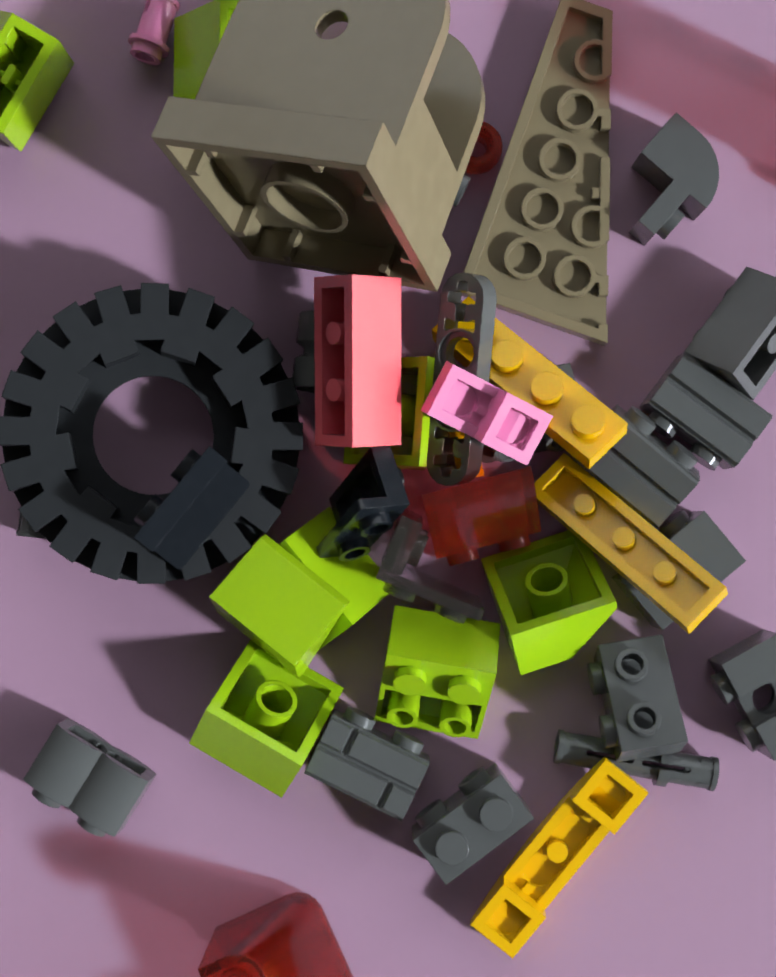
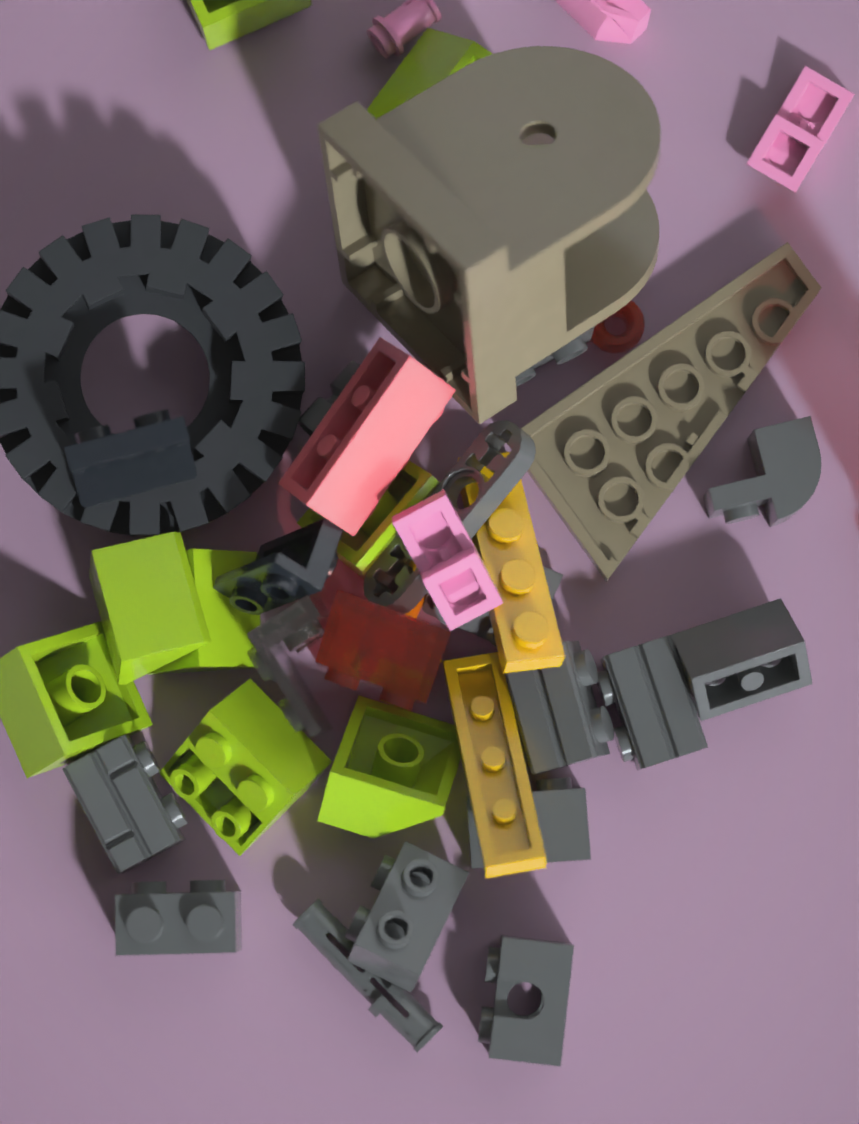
camera: 40 degrees right, 5 degrees down
(555, 853) = (234, 1009): yellow slope -> none

